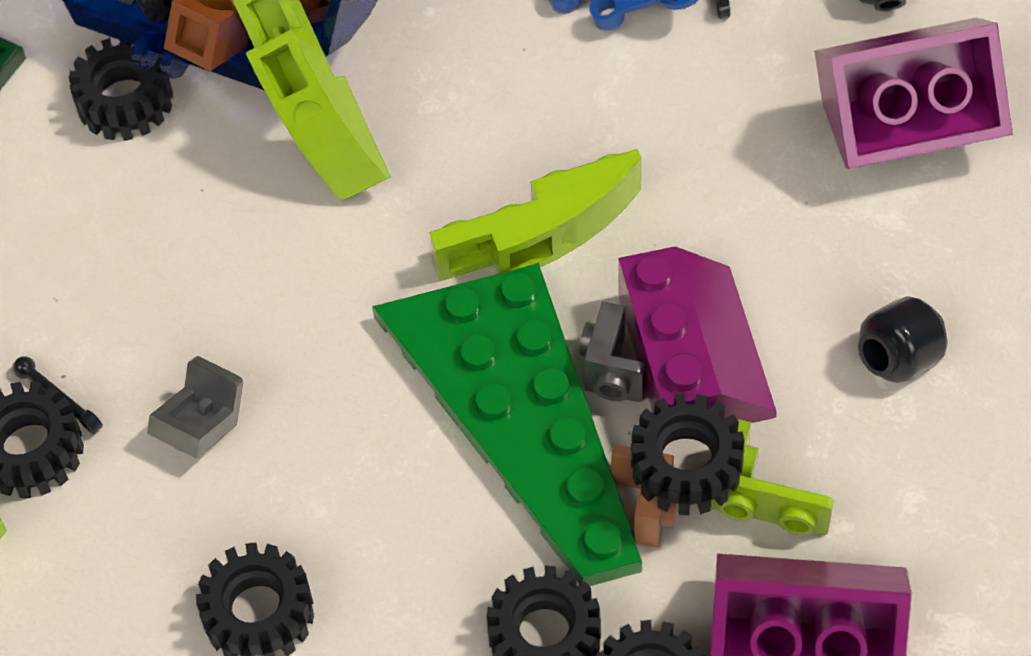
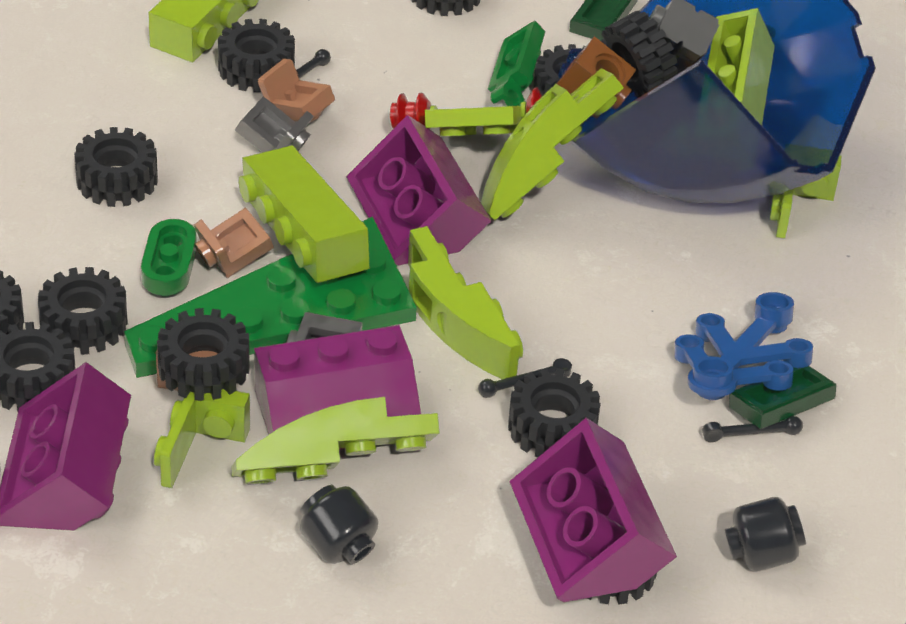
camera: 80 degrees right, 15 degrees down
(88, 143) = (516, 64): none -> green plate
(129, 387) = (293, 95): none -> nougat bracket
(218, 172) = (462, 120): none -> lime plate
(340, 256) = (417, 184): none -> magenta slope
(390, 366) = (305, 213): none -> lime brick
(422, 456) = (232, 242): none -> nougat bracket
(444, 528) = (169, 257): none -> green plate
(624, 137) = (488, 387): none -> black hinge
(713, 113) = (549, 393): none -> black tyre
(780, 353) = (314, 440): none -> lime slope

